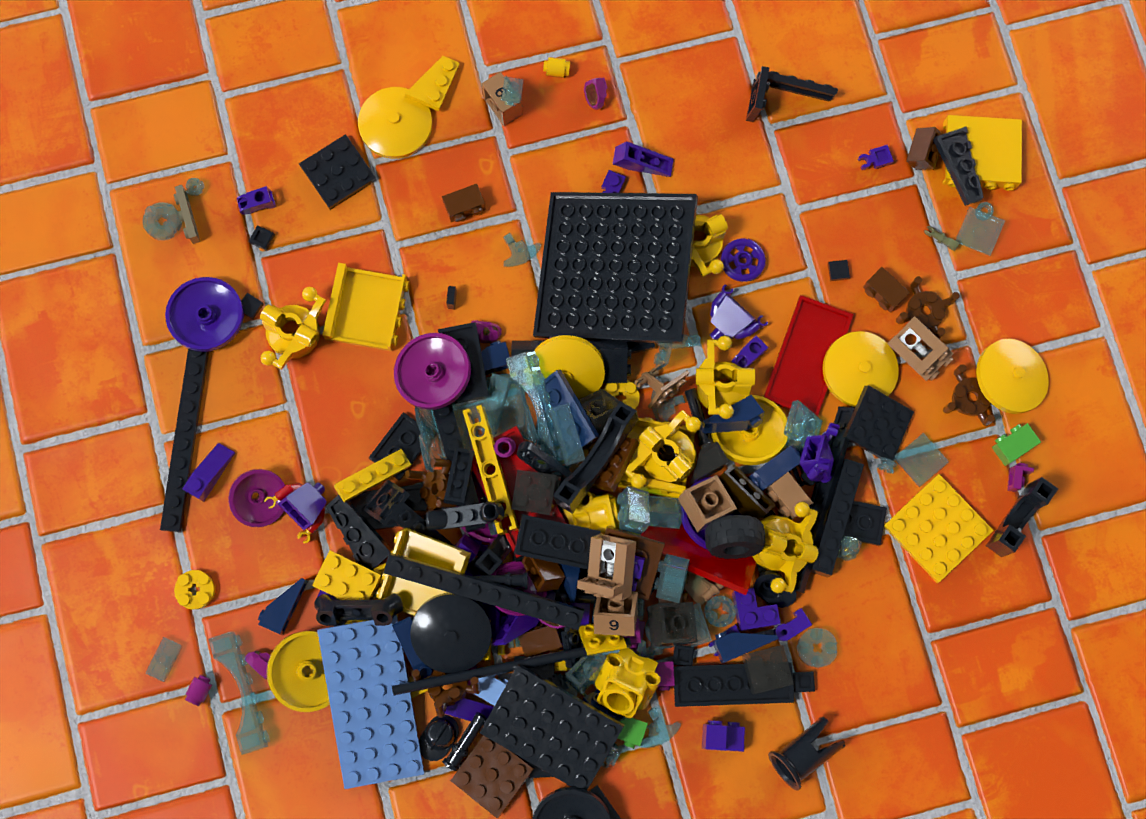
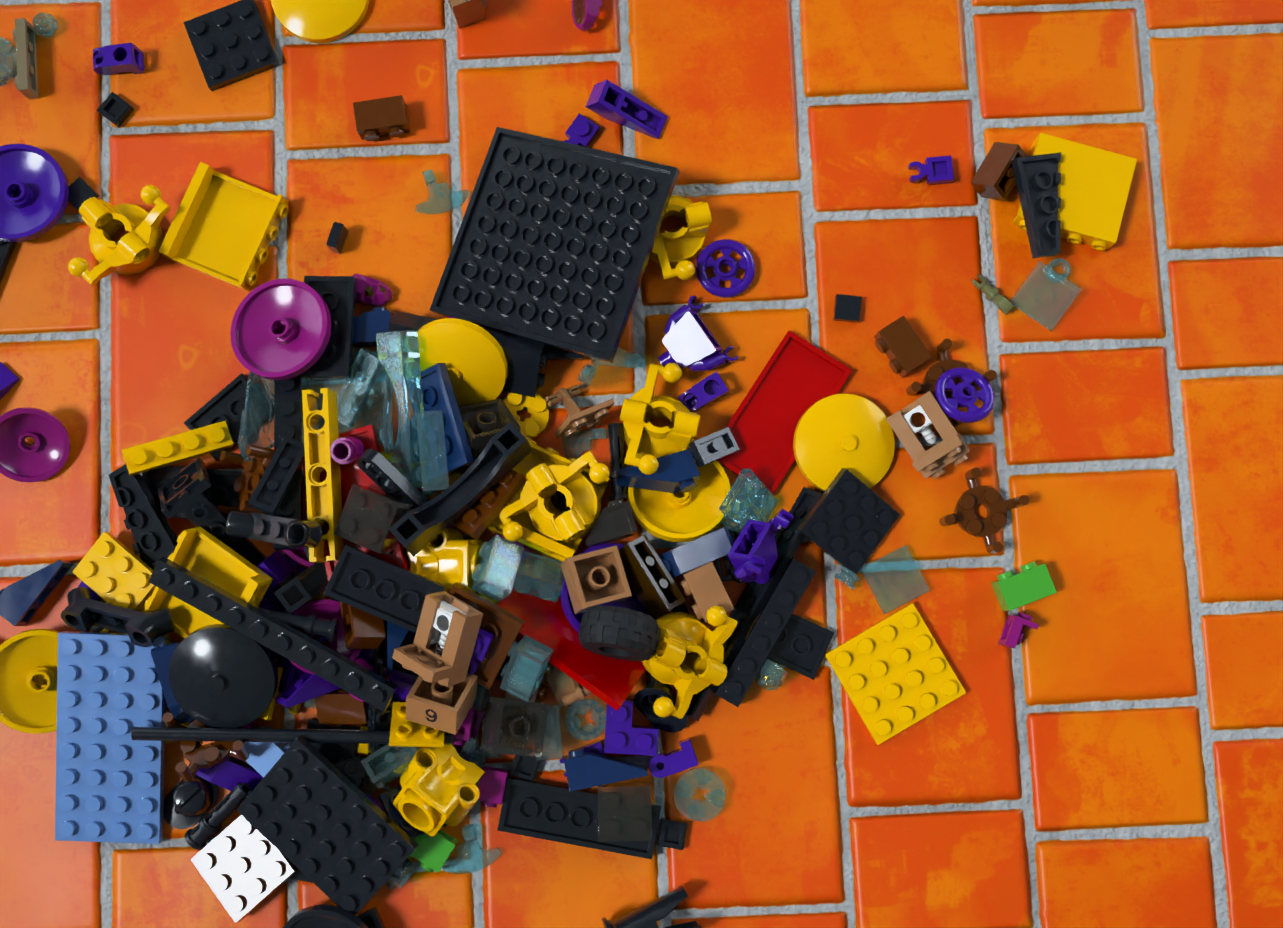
camera: 15 degrees right, 5 degrees up
(303, 505) = (82, 465): dark purple torso -> none
(723, 738) = (548, 884): dark purple brick -> none
(767, 390) = (713, 447): none -> plate
(786, 83) = (839, 47): black bracket -> none
(936, 317) = (949, 405): none -> dark purple plate
(1008, 534) = (1028, 663): black arch -> none
(1012, 376) = (1040, 496): yellow dish -> none

